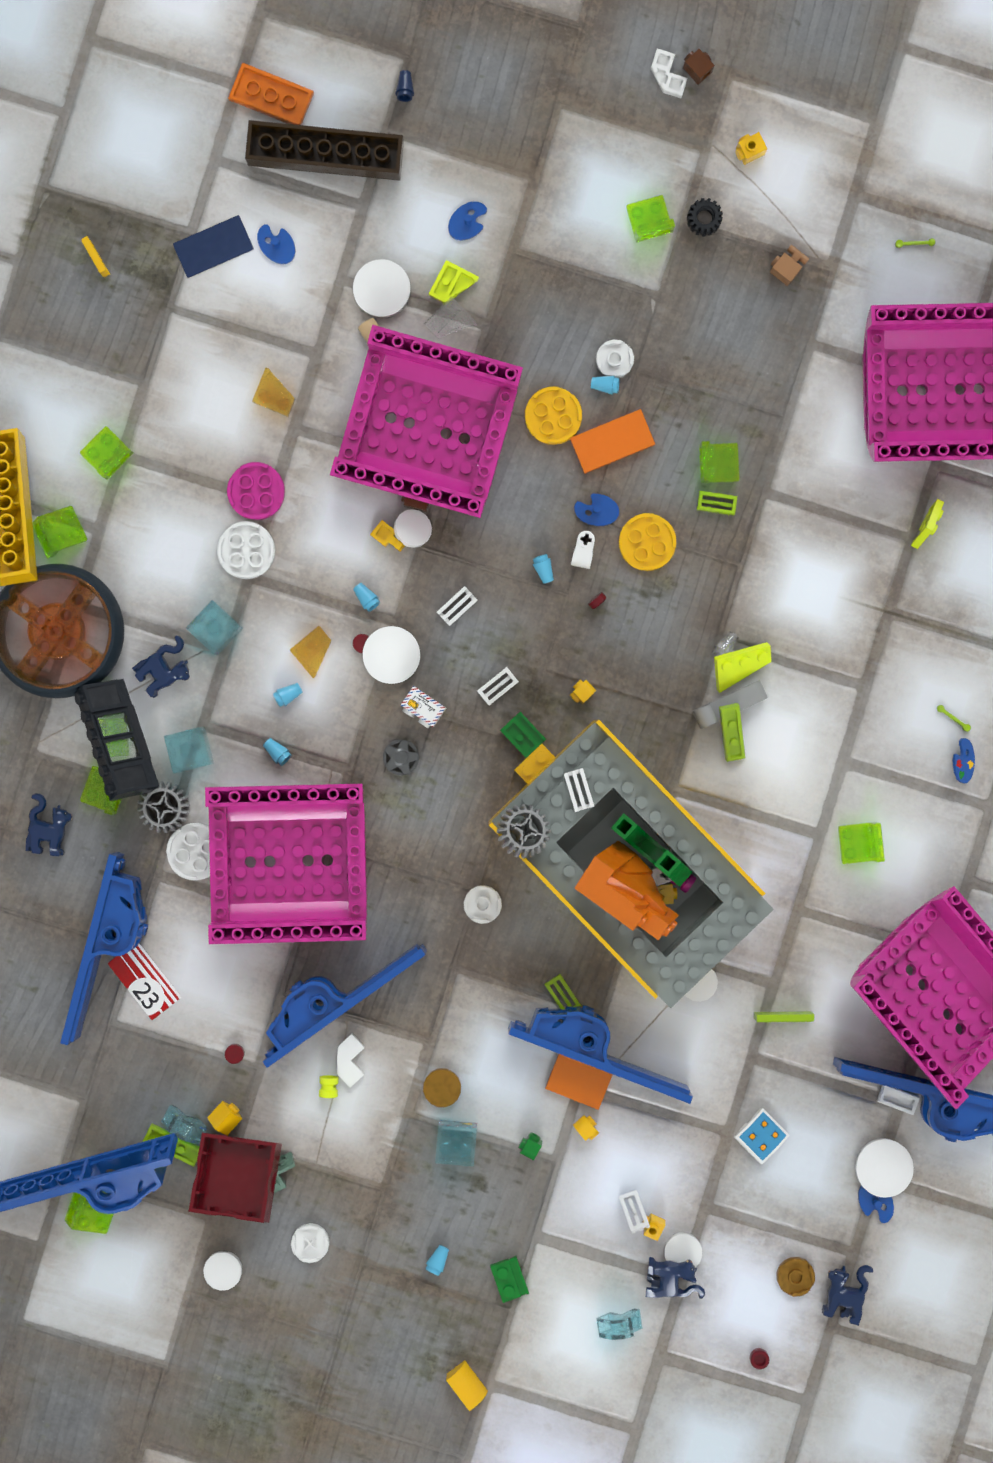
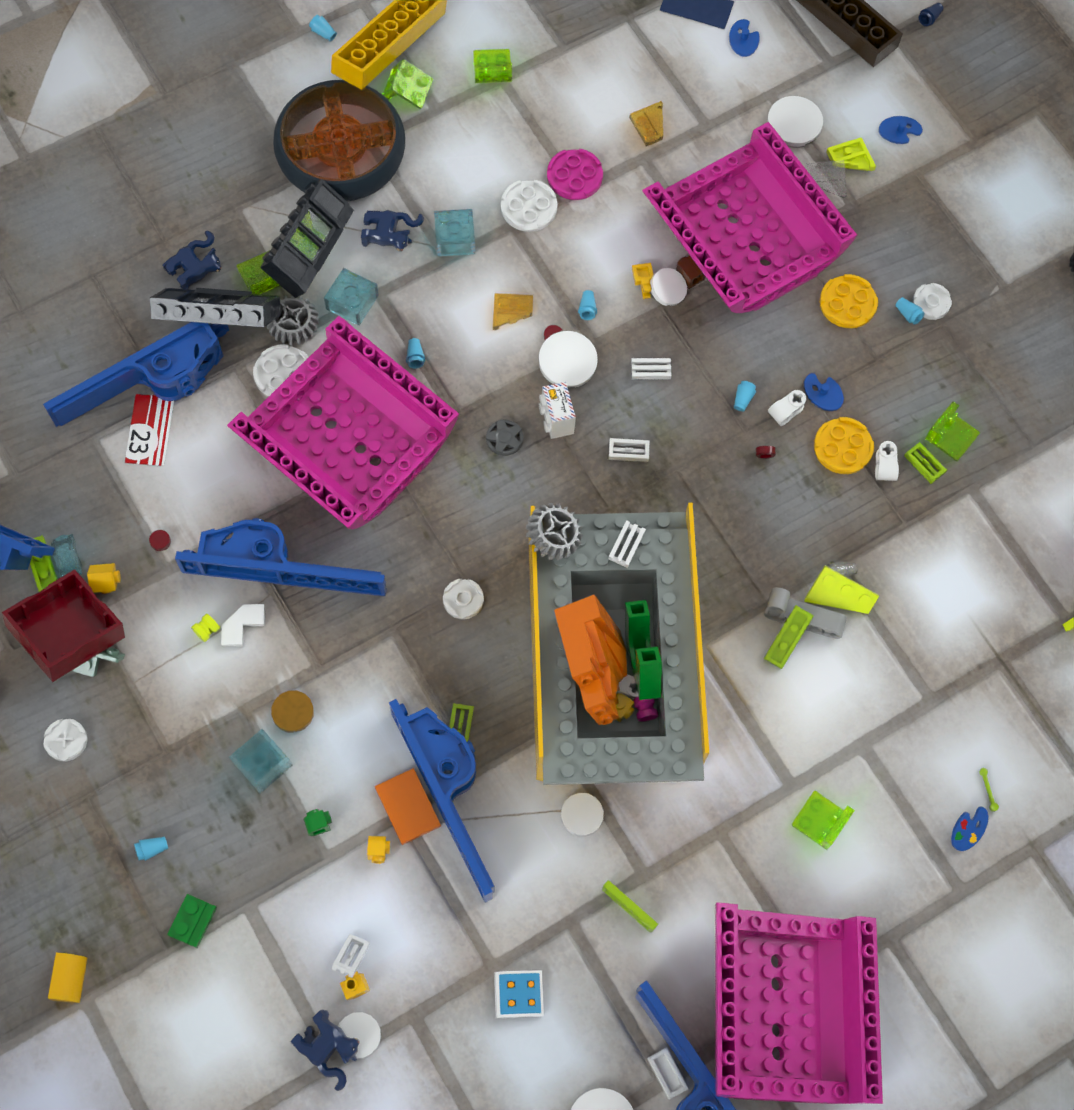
camera: 35 degrees right, 20 degrees down
(105, 856) = (215, 306): none -> window
(287, 694) = (460, 320): medium azure cone -> none
(523, 734) = (615, 496): green plate -> none
(582, 691) = (698, 506): yellow plate -> none
(612, 441) = (879, 354): orange tile -> none
(619, 1326) = (245, 1046): clear light blue brick -> none
(650, 218) = (1043, 230): clear neon green bracket -> none
(693, 533) = (887, 465): none -> white piece

